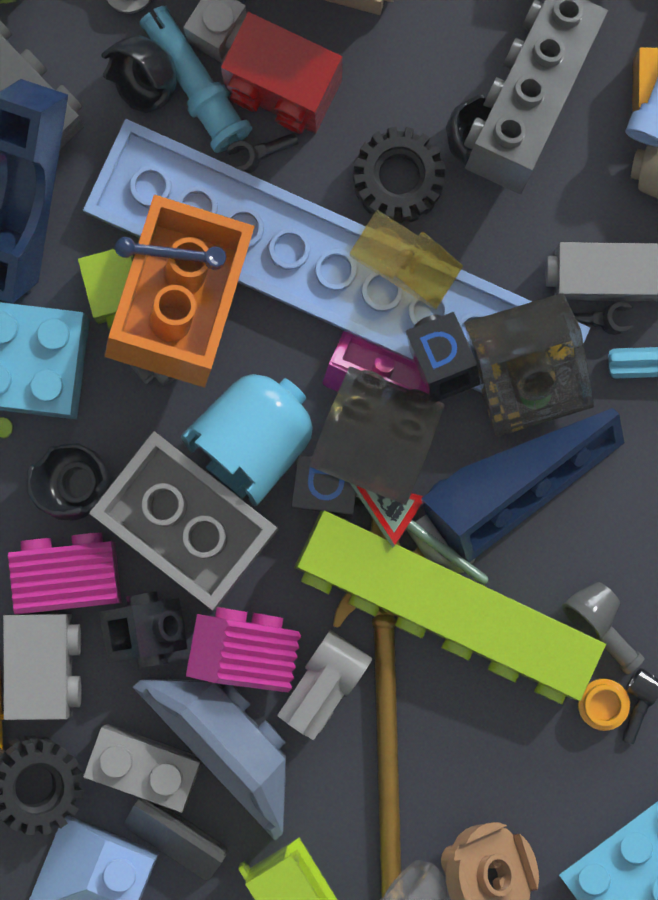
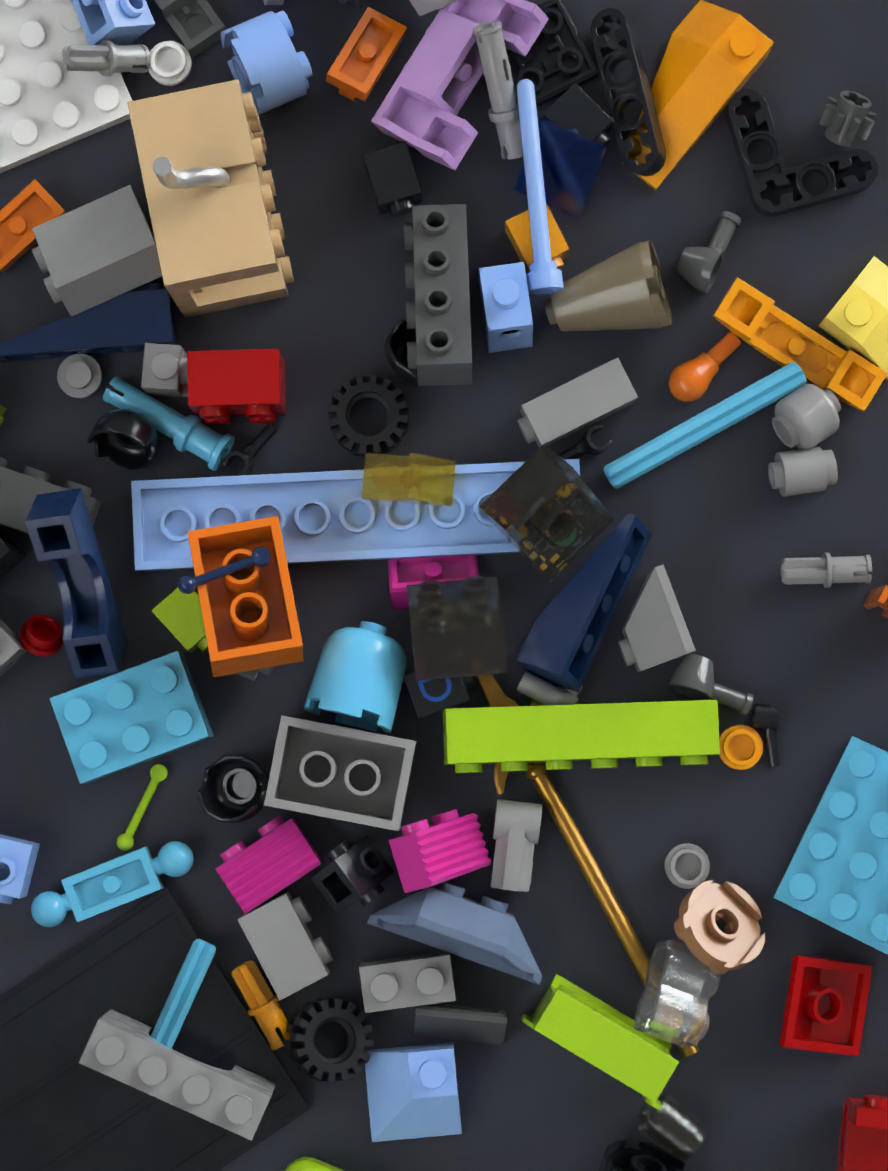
camera: 25 degrees left, 0 degrees up
(396, 517) = (503, 687): sand green piece -> none
(442, 356) = (476, 541): black brick -> none
(487, 797) = (687, 865): none -> light grey plate
(581, 536) = (655, 625): none -> light grey slope
(595, 135) = (506, 306): none -> light blue torso

